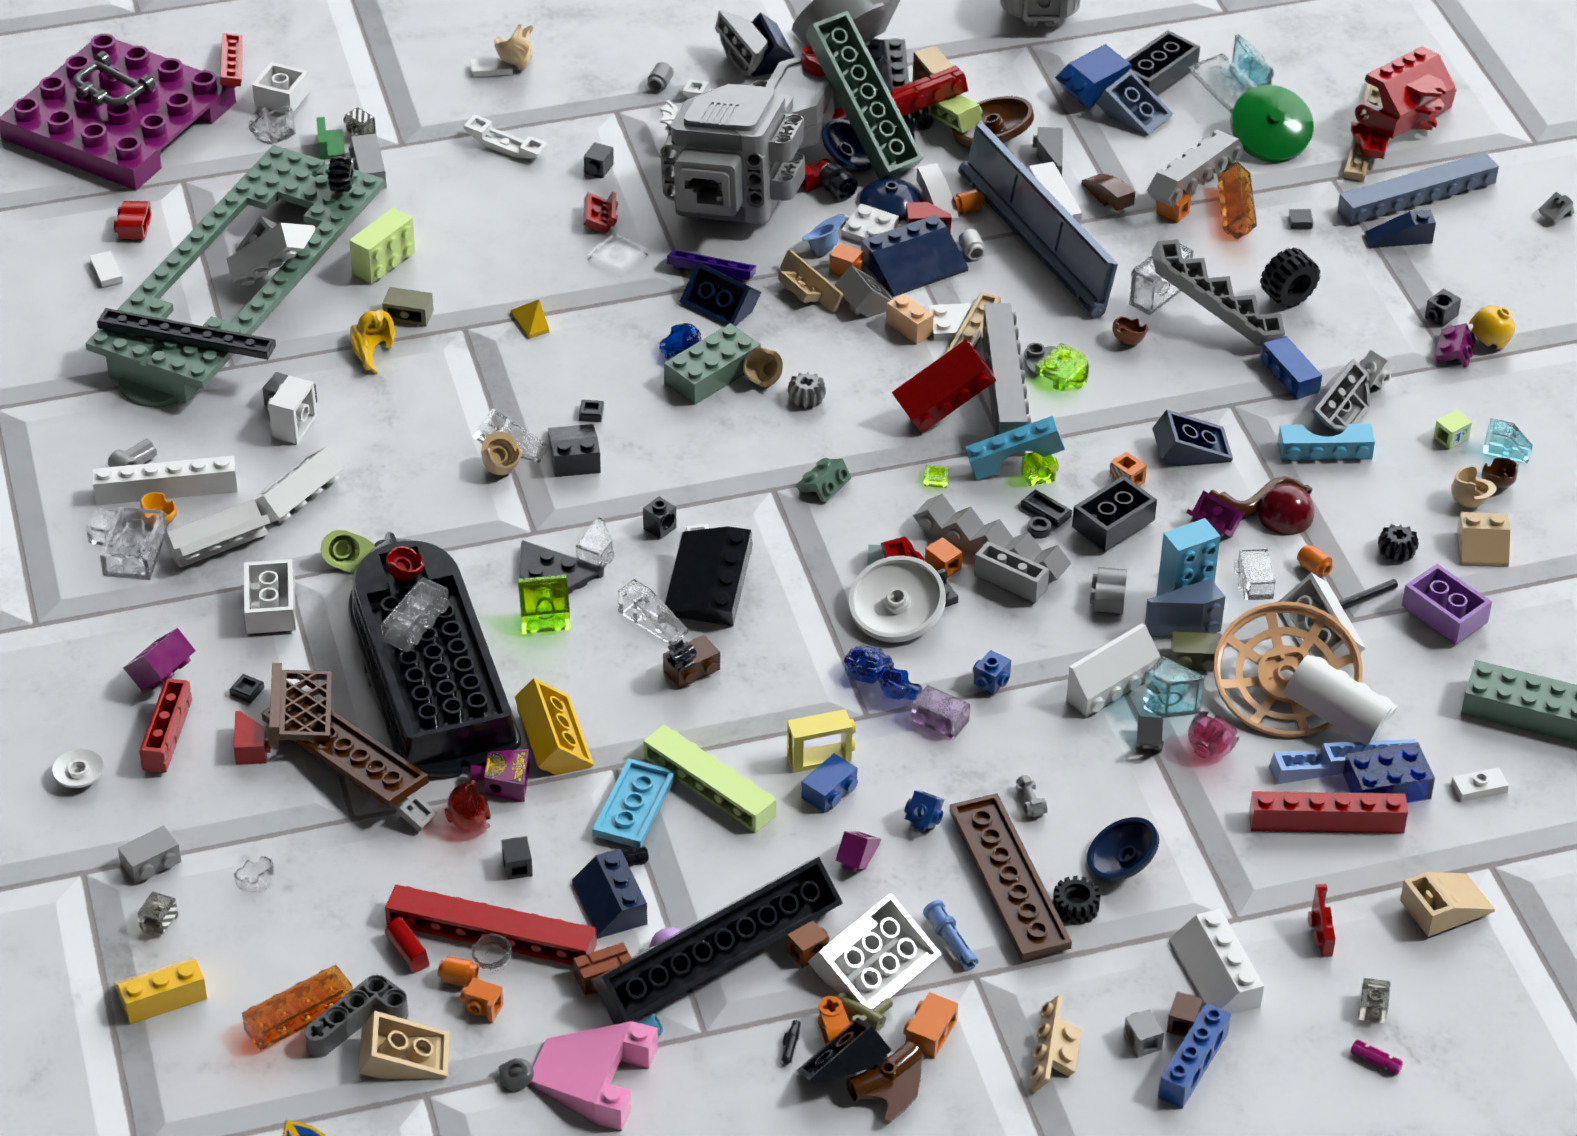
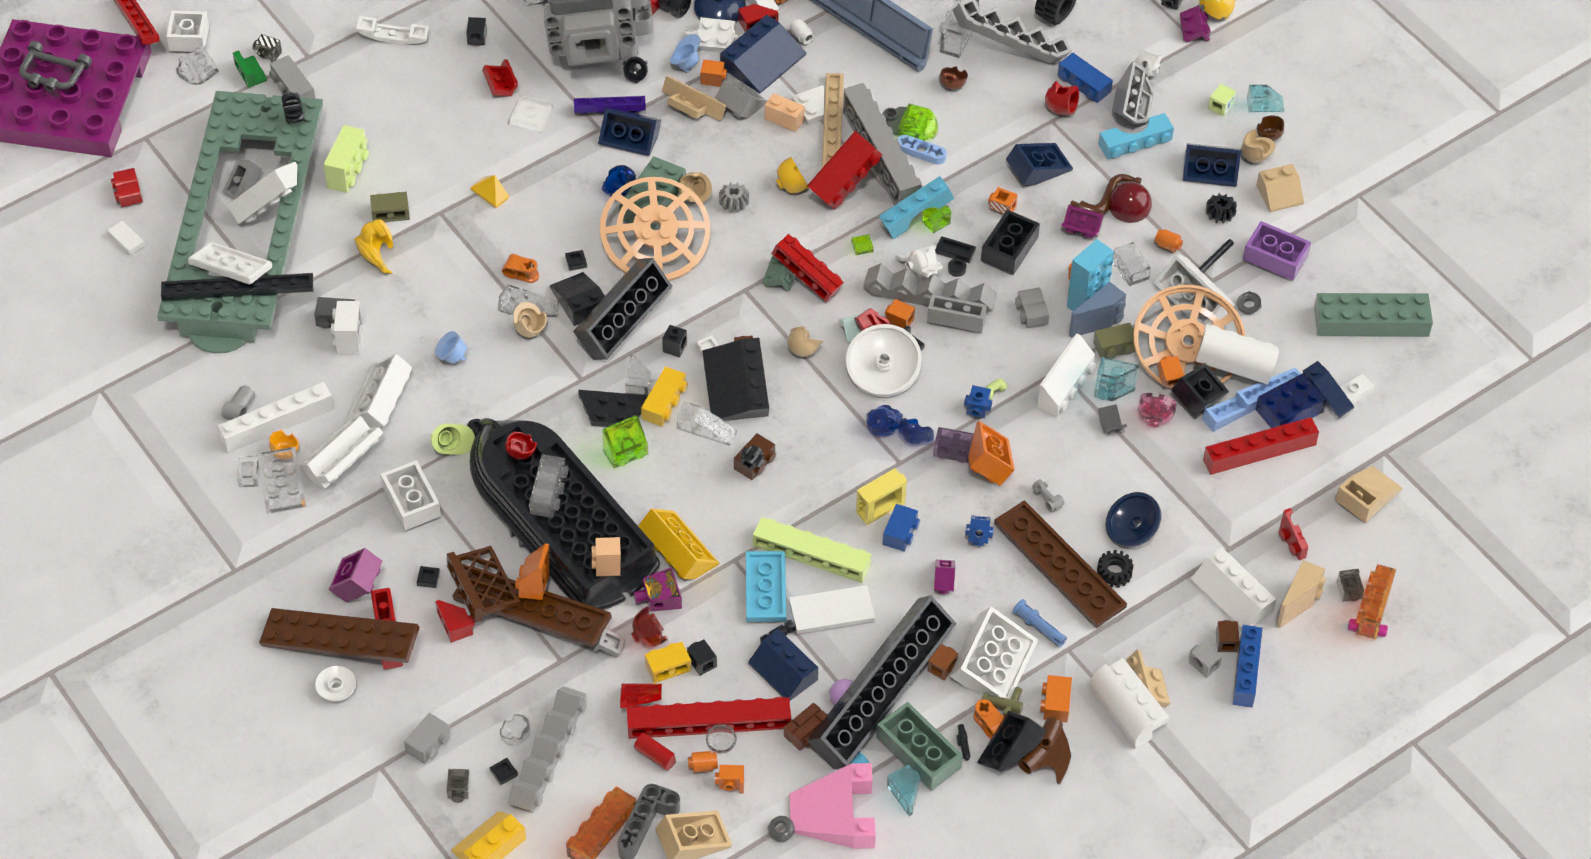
camera: 20 degrees left, 10 degrees up
(107, 716) = (339, 635): none -> reddish brown plate
(190, 308) = (230, 262): none -> white tile
(220, 917) = (503, 771): none -> black tile
(281, 905) = (547, 749): none -> light grey brick
(360, 711) = (534, 574): none -> orange slope
(399, 462) = (451, 348): none -> light blue piece
(420, 875) = (638, 693): none -> red wing
(442, 704) = (606, 556): none -> light nougat brick
(473, 852) = (667, 662): none -> yellow brick
(522, 402) = (518, 268): none -> orange piece
(613, 467) = (622, 308): none -> black brick
(616, 570) = (664, 396): none -> yellow brick
(691, 1071) = (905, 787): none -> clear light blue slope
(693, 405) = (655, 238): none -> light nougat dish
(702, 850) = (832, 609): none -> white tile
(729, 1027) = (919, 745): none -> sand green brick
(754, 236) = (632, 72): none -> black piece
(809, 557) = (801, 344): none -> tan helmet
(853, 479) = (807, 267): none -> red brick
(881, 382) = (790, 177): none -> yellow cylinder
(977, 730) = (990, 454): none -> orange slope
(995, 505) = (920, 262): none -> white helmet
(1018, 1051) = (1127, 701): none -> white brick
(1026, 661) = (997, 384): none -> yellowish green arm
(1044, 387) = (932, 157): none -> light blue beam
(1246, 697) = (1169, 370): none -> orange brick
(1251, 381) = (1062, 99): none -> red piece
(1275, 728) = (1199, 390): none -> black slope
(1300, 989) = (1302, 593): none -> tan slope
(1387, 646) = (1249, 296): none -> dark grey piece
(1396, 1026) = (1376, 601): none -> clear orange brick
(1407, 493) = (1211, 164): none -> dark blue slope
(1447, 777) = (1323, 380): none -> dark blue slope

